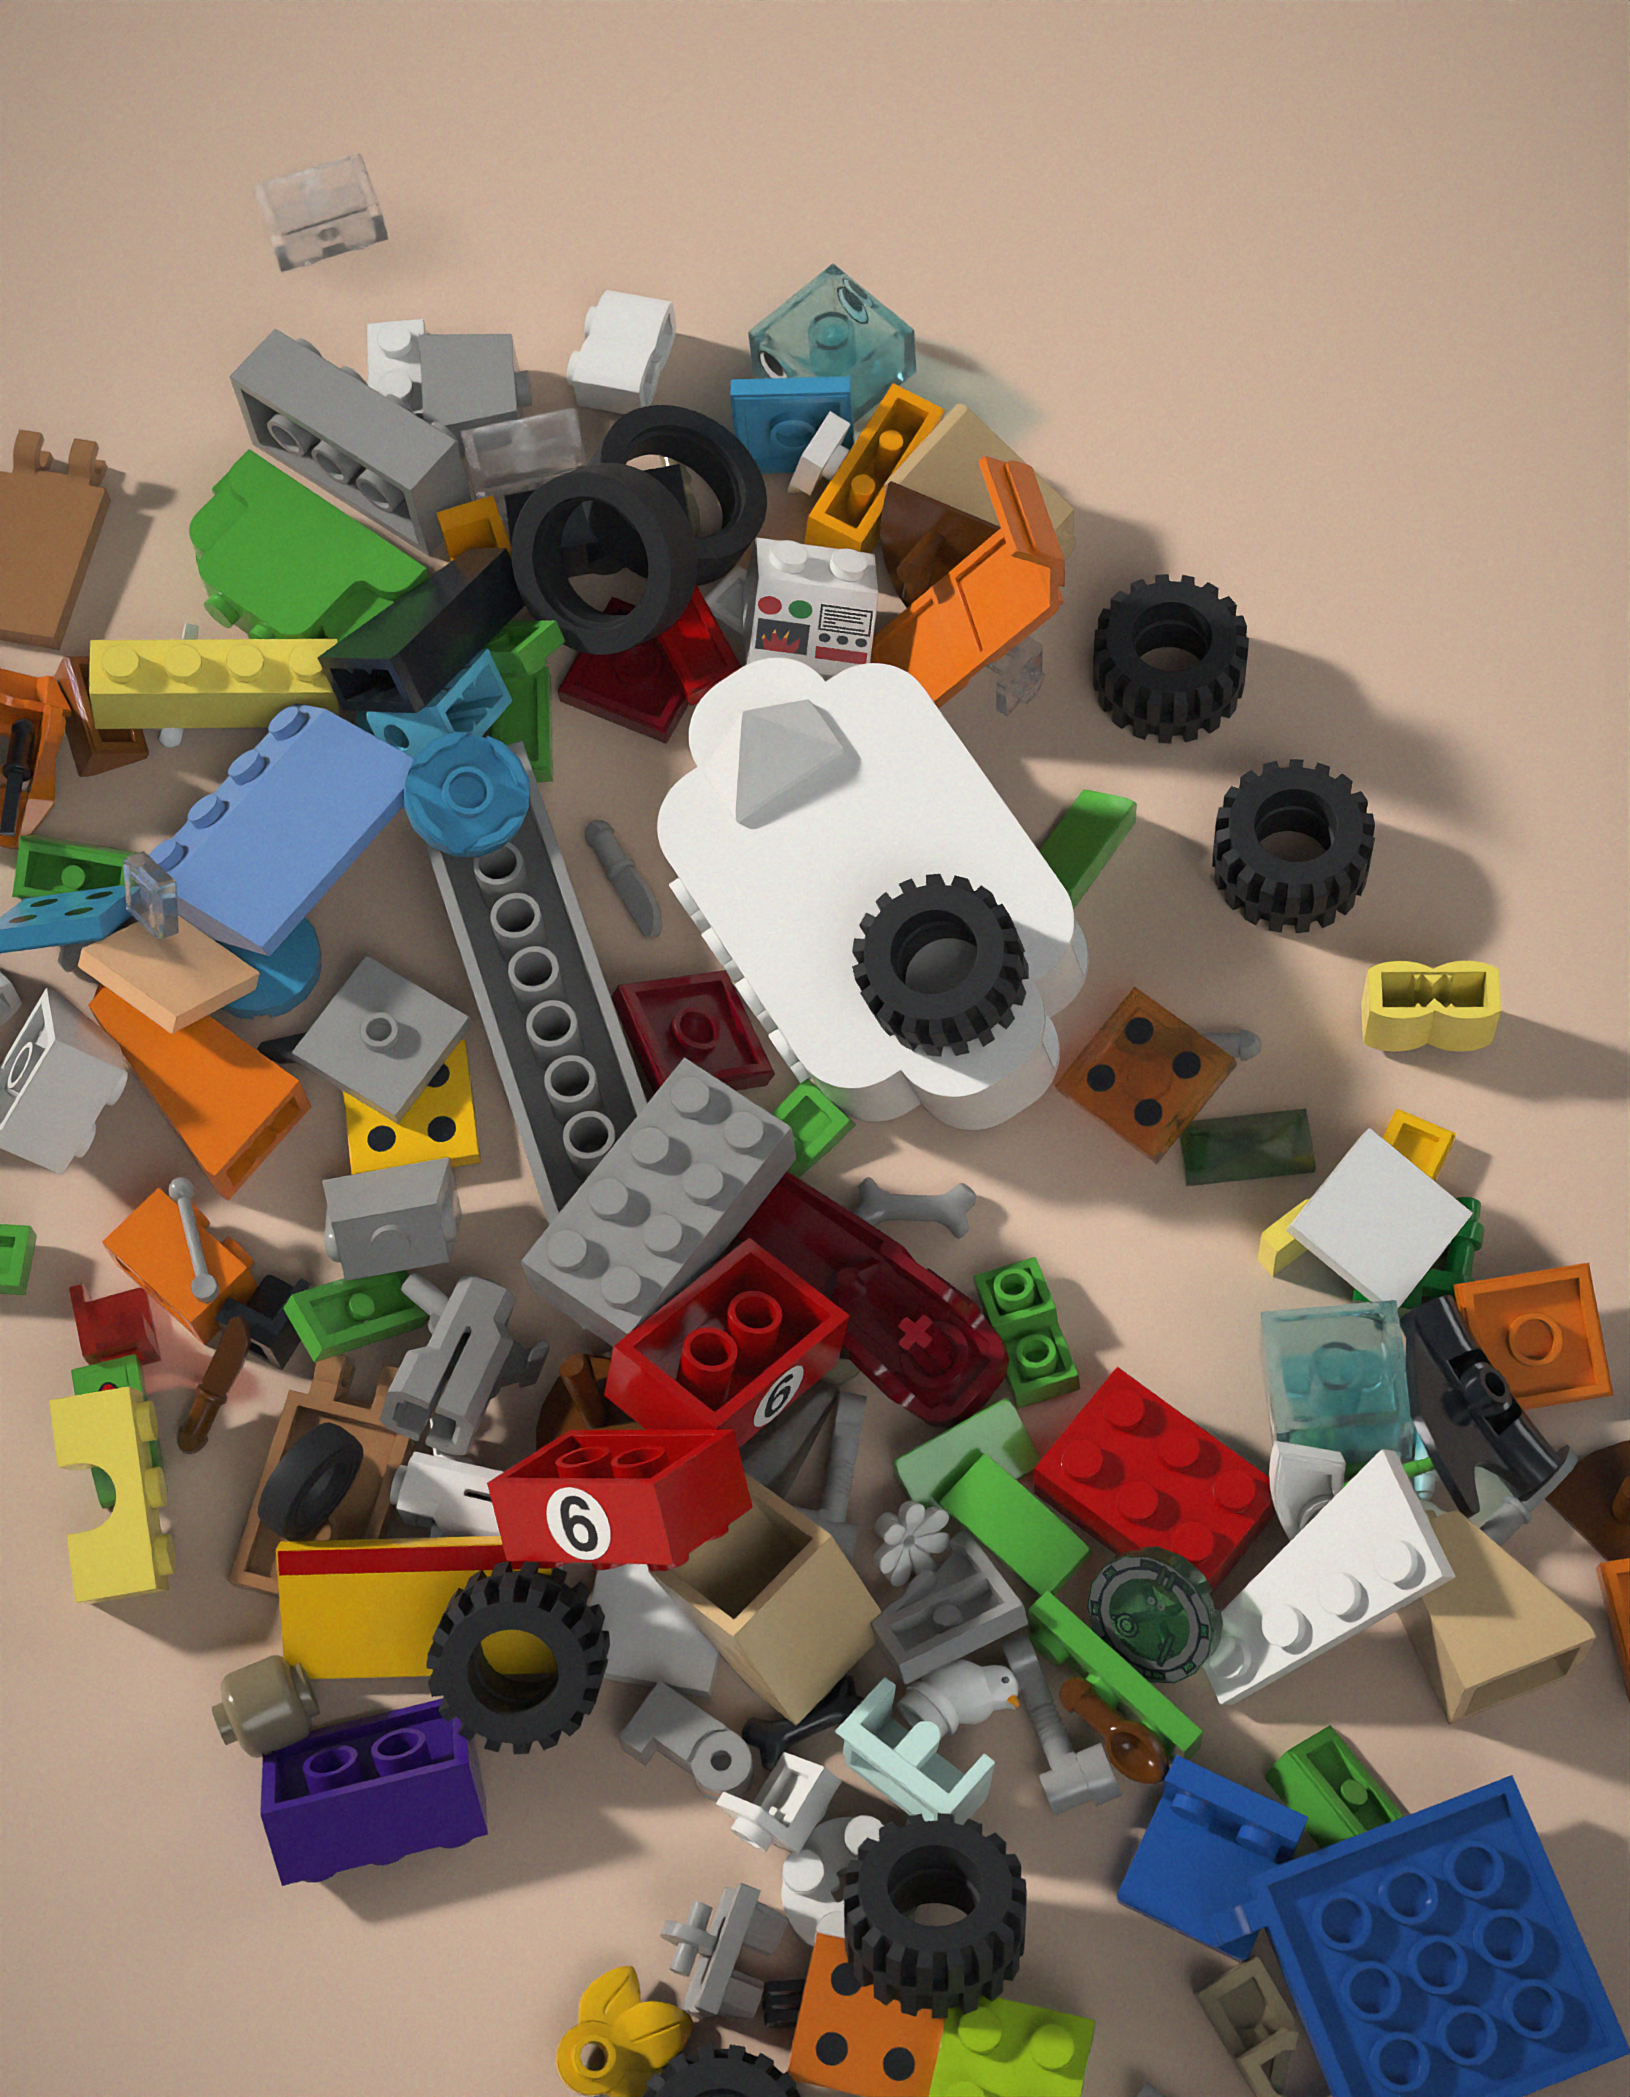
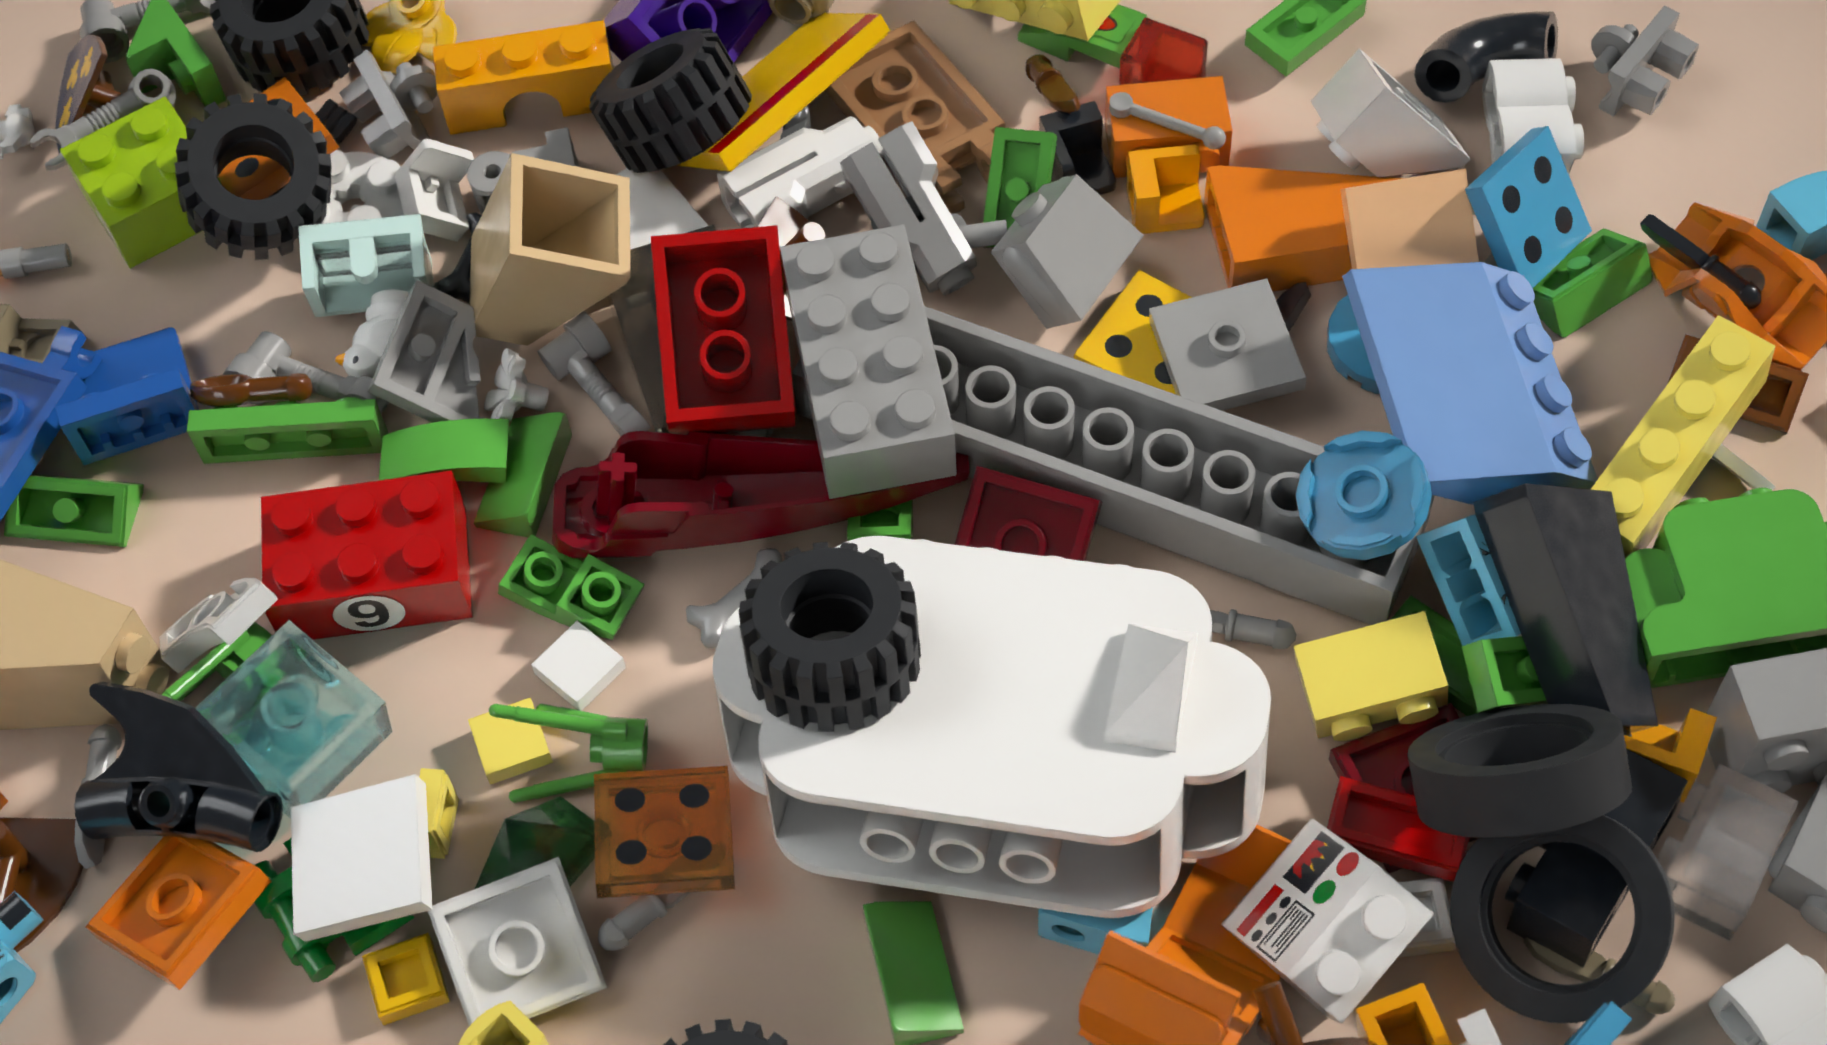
camera: 130 degrees right, 5 degrees down
(151, 895) = (1485, 247): clear tile -> none
(256, 1220) = (1165, 189): none -> light orange panel
(310, 1481) = (907, 61): black tyre -> none
(589, 1848) = (484, 74): none -> light orange arch
(590, 734) = (1372, 677): none -> light yellow brick
(621, 1497) = (675, 167): red brick -> none
(1080, 1265) = (578, 666): none -> white tile
(1119, 1172) = (614, 742): none -> bright green plant
(1155, 1613) = (287, 473): tile -> none
(1183, 1255) = (508, 745): none -> light yellow tile
(1320, 1085) = (518, 943): none -> white tile
(1334, 1579) = (162, 565): white wing -> none

